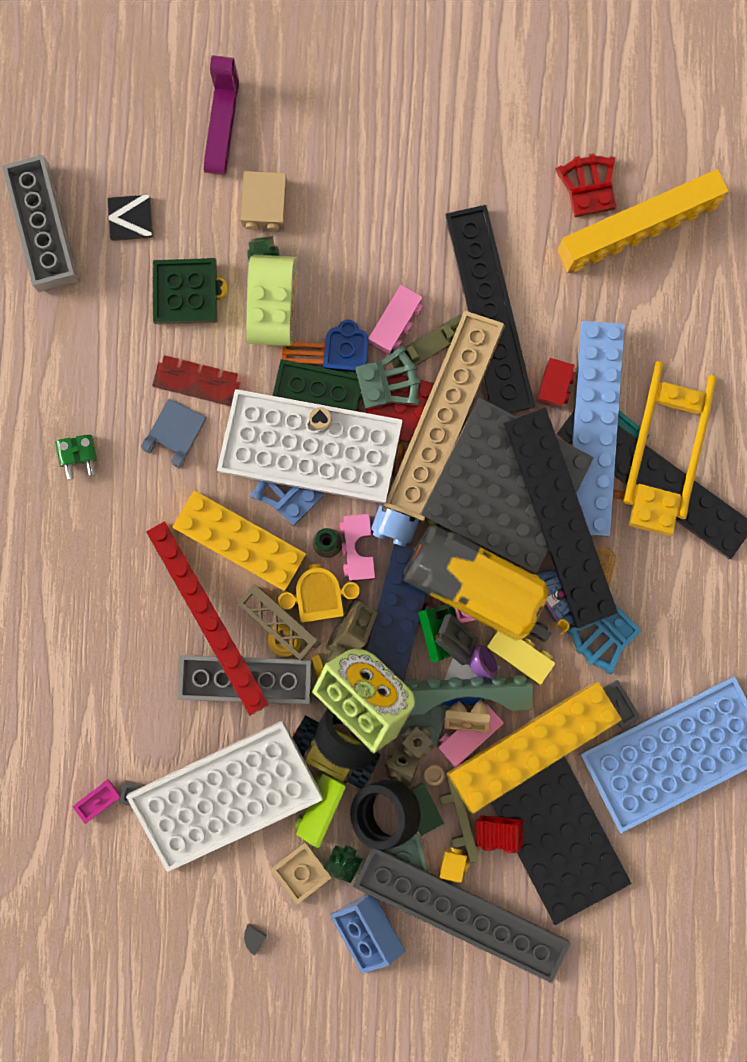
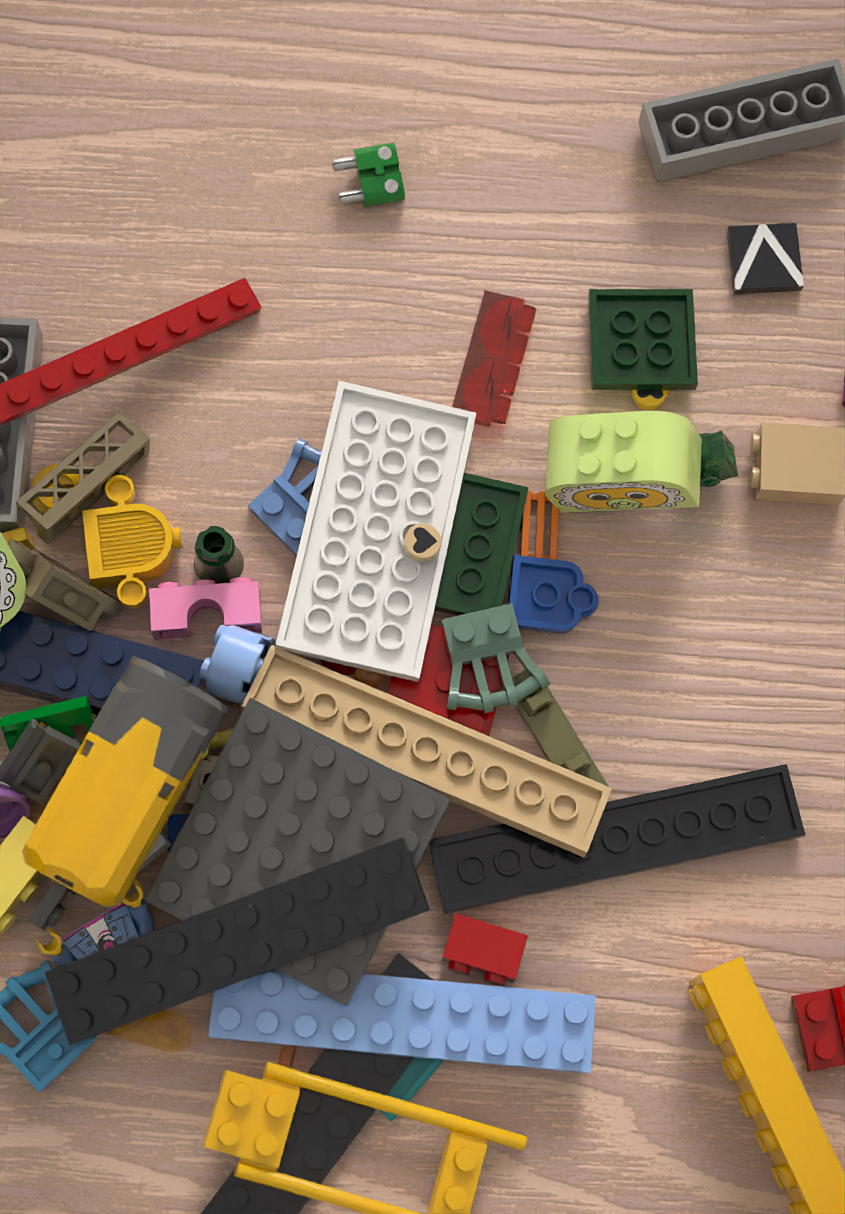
camera: 85 degrees right, 10 degrees down
(175, 430) = (410, 324): sand blue flag -> none
(240, 541) = (222, 420): yellow brick -> none
(396, 320) = (596, 677): bright pink brick -> none

